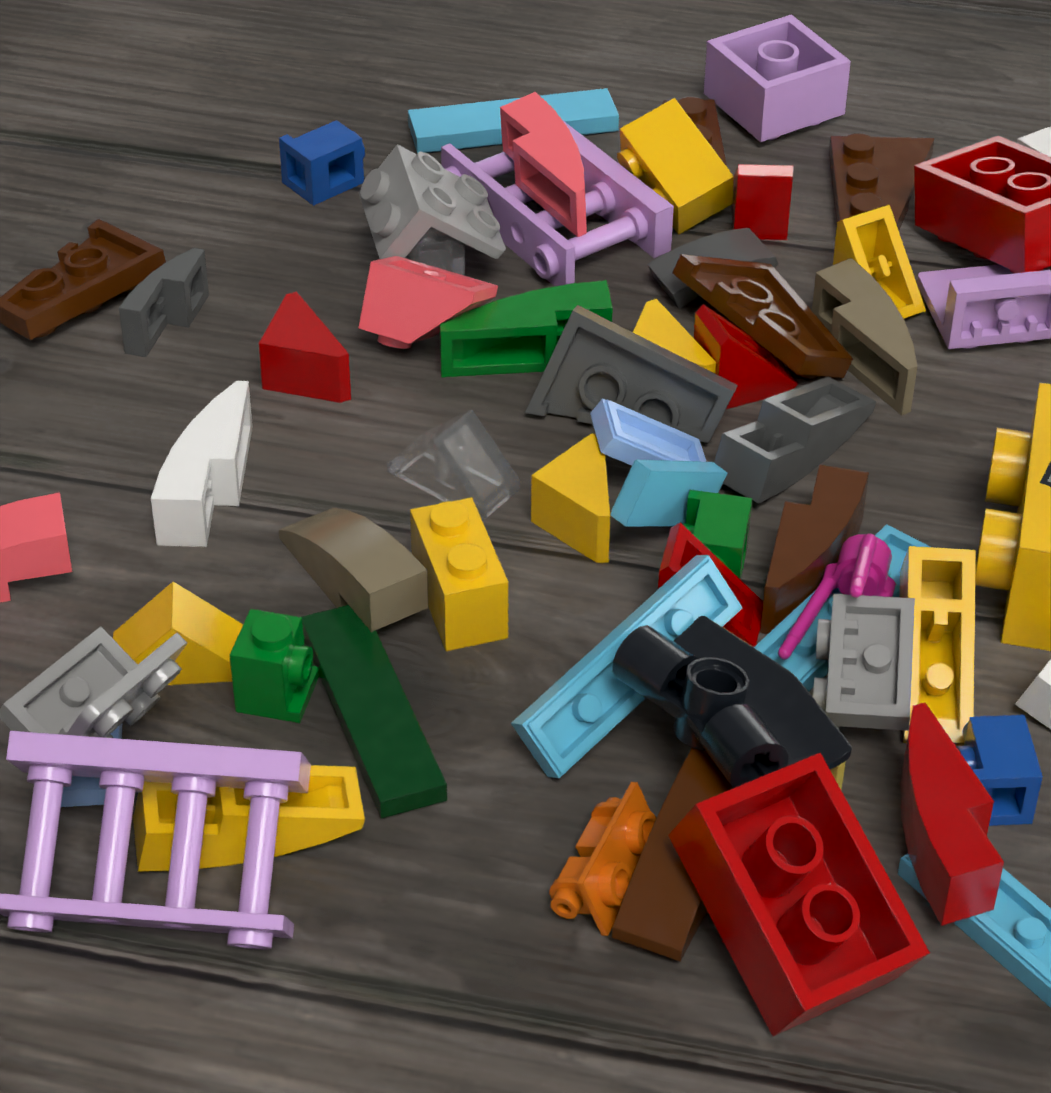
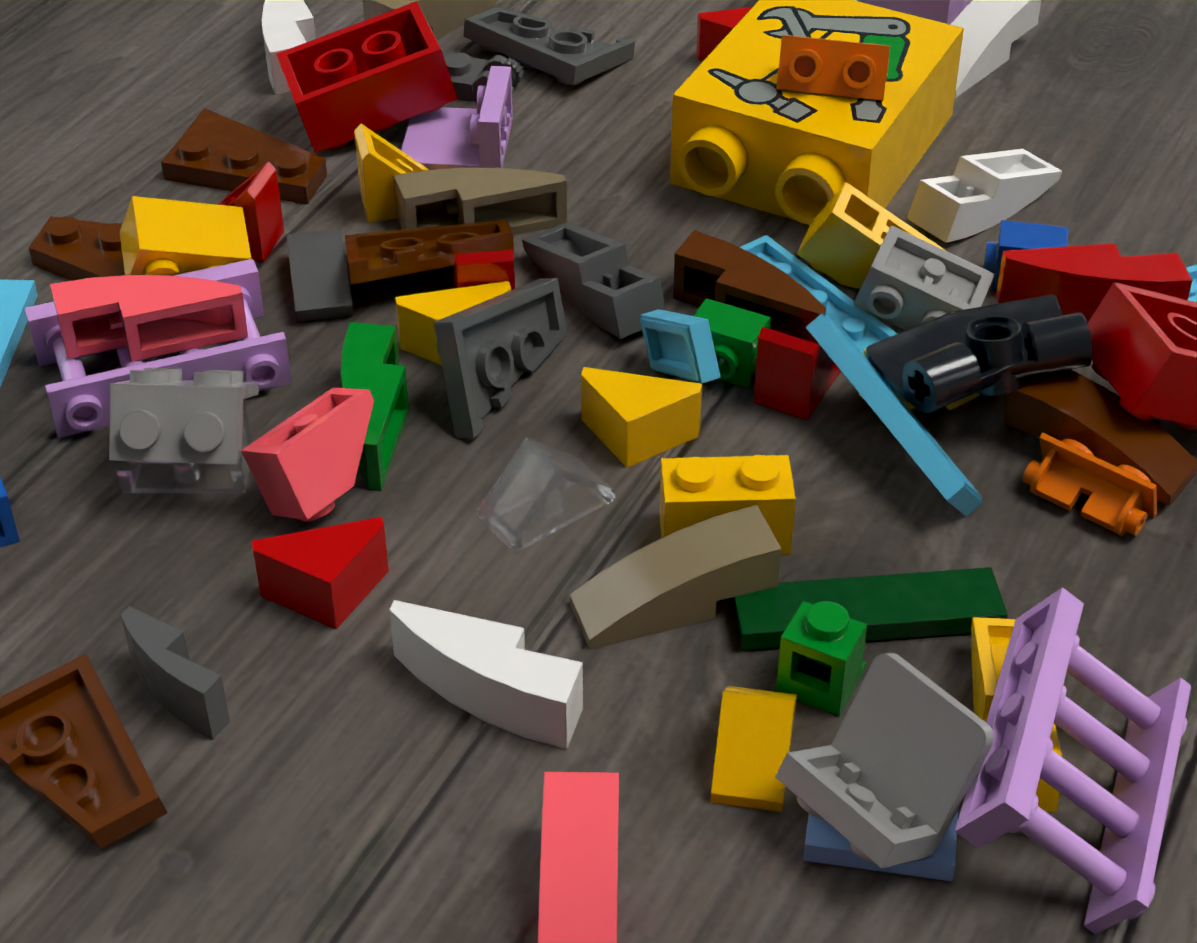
camera: 75 degrees left, 0 degrees up
(634, 436) = (593, 350): light blue tile -> none
(776, 77) = (66, 162): lavender brick -> none
(859, 571) = (810, 266): dark pink plant -> none

